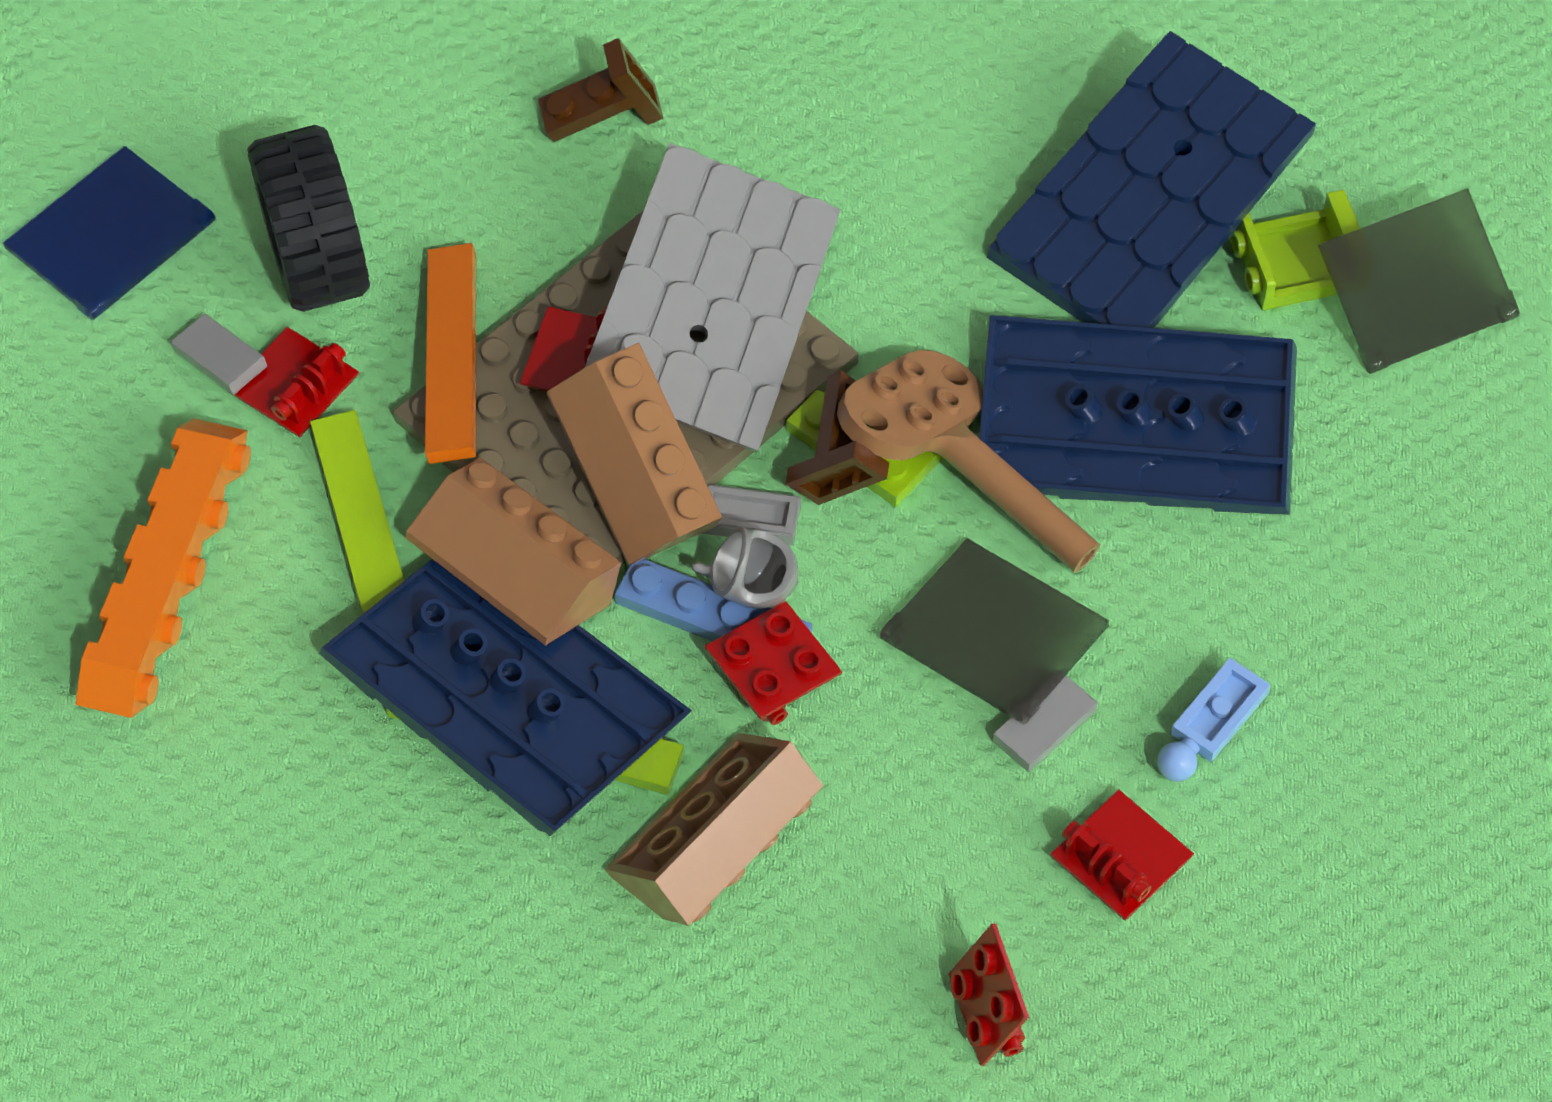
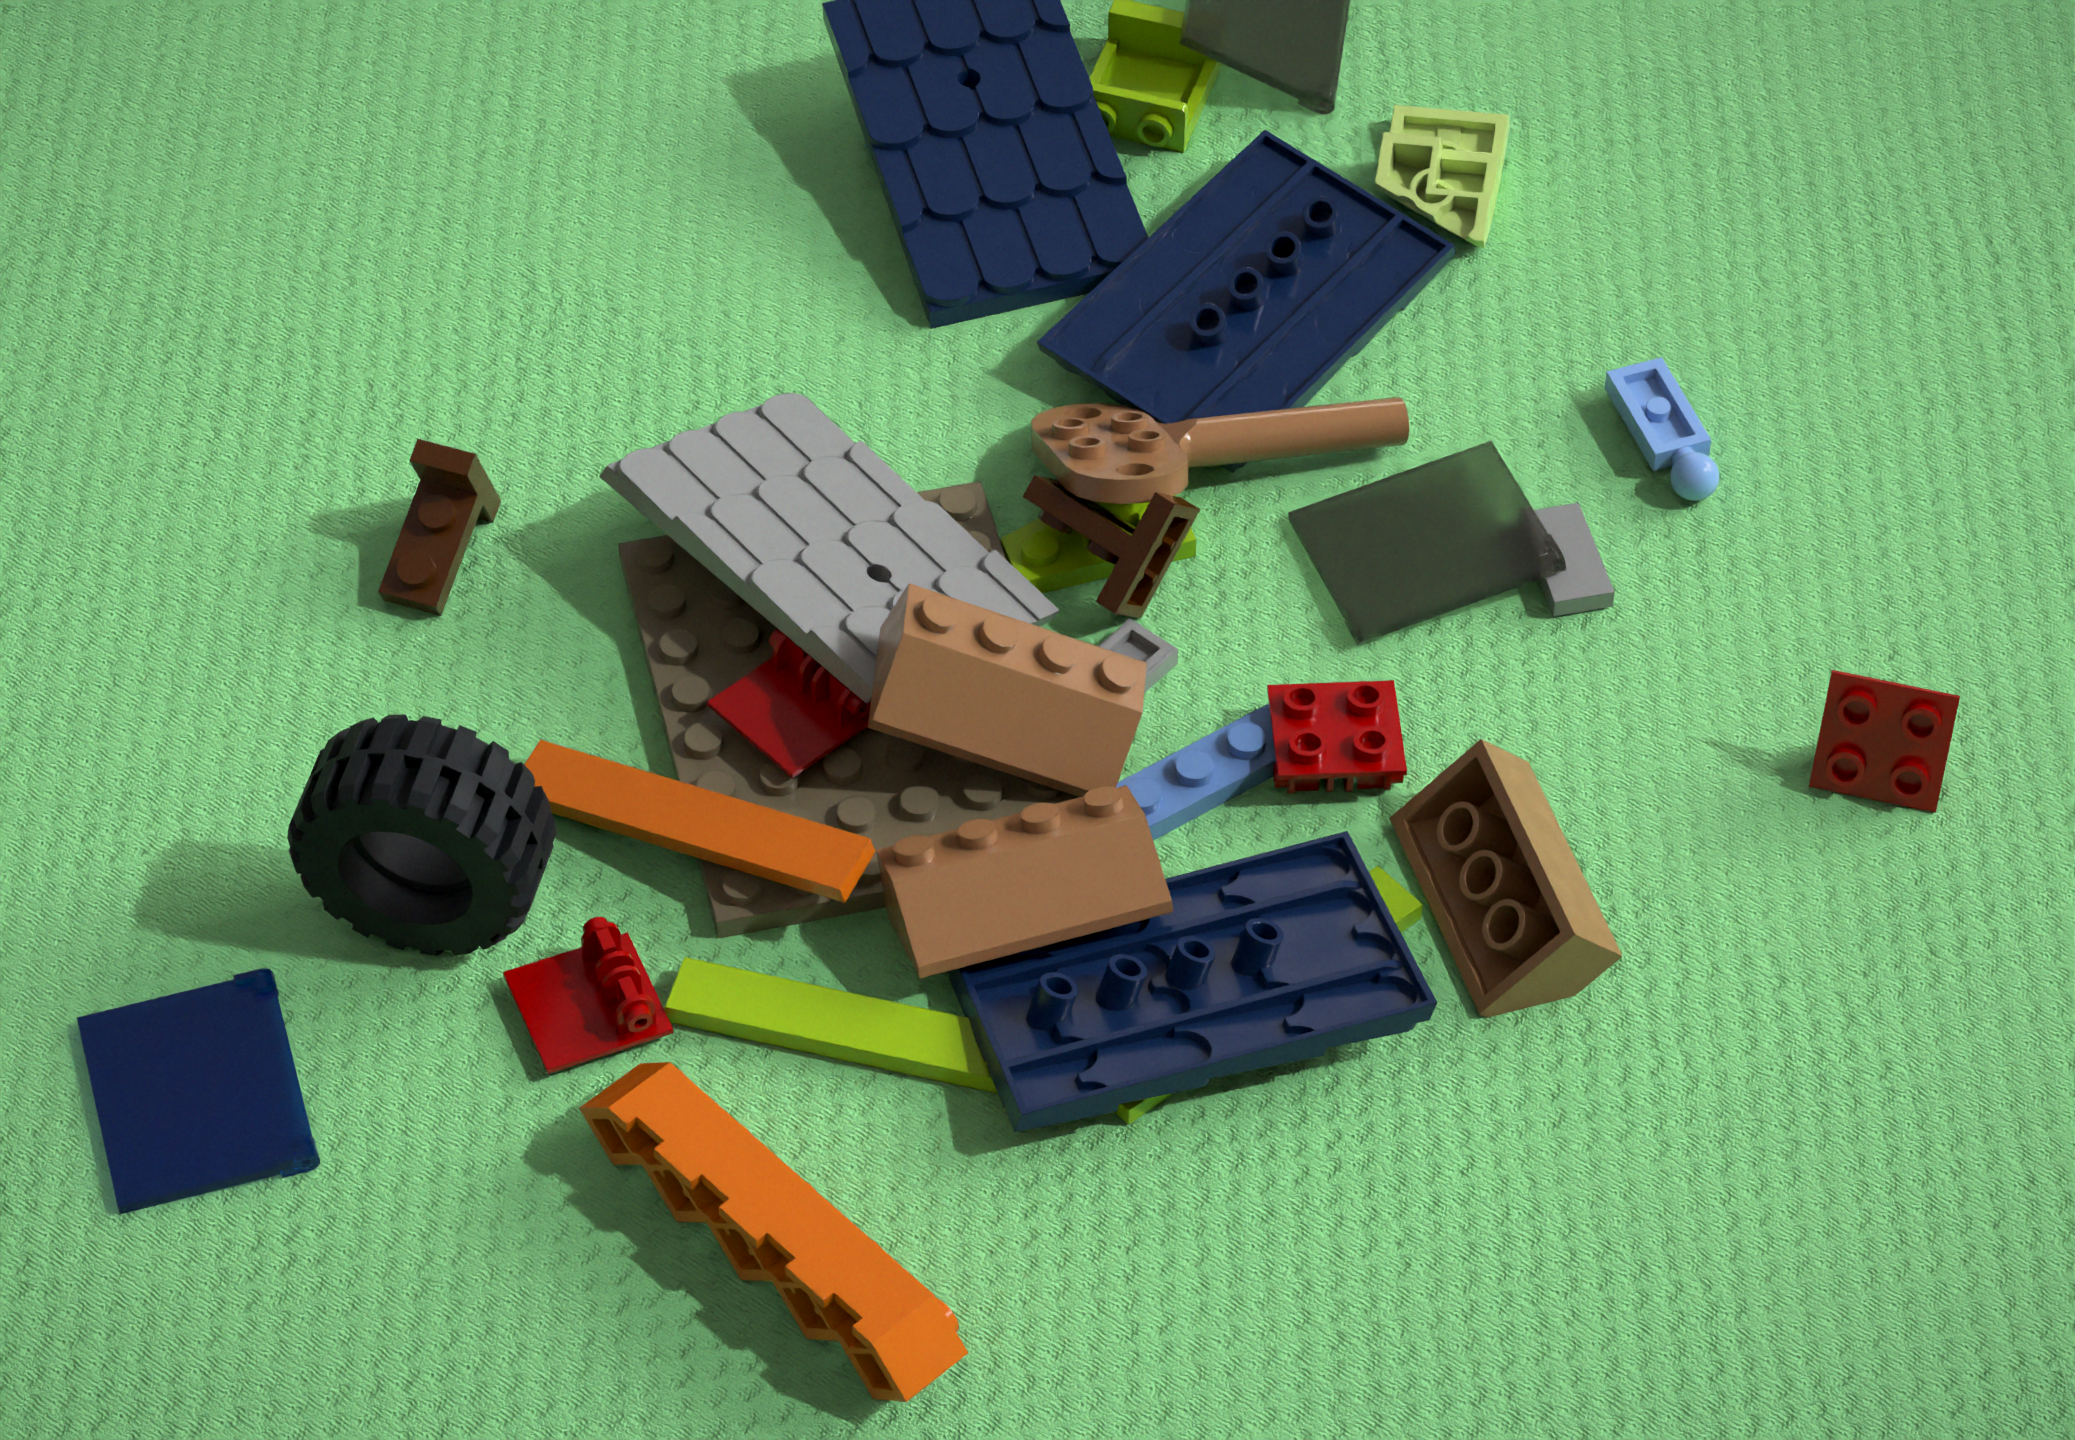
camera: 60 degrees left, 10 degrees down
(219, 354) = (490, 1052): light grey tile -> none
(752, 569) = (1218, 682): light grey piece -> none
(1121, 854) = (1771, 576): red hinge -> none
(1360, 466) = (1445, 166): none -> yellowish green slope

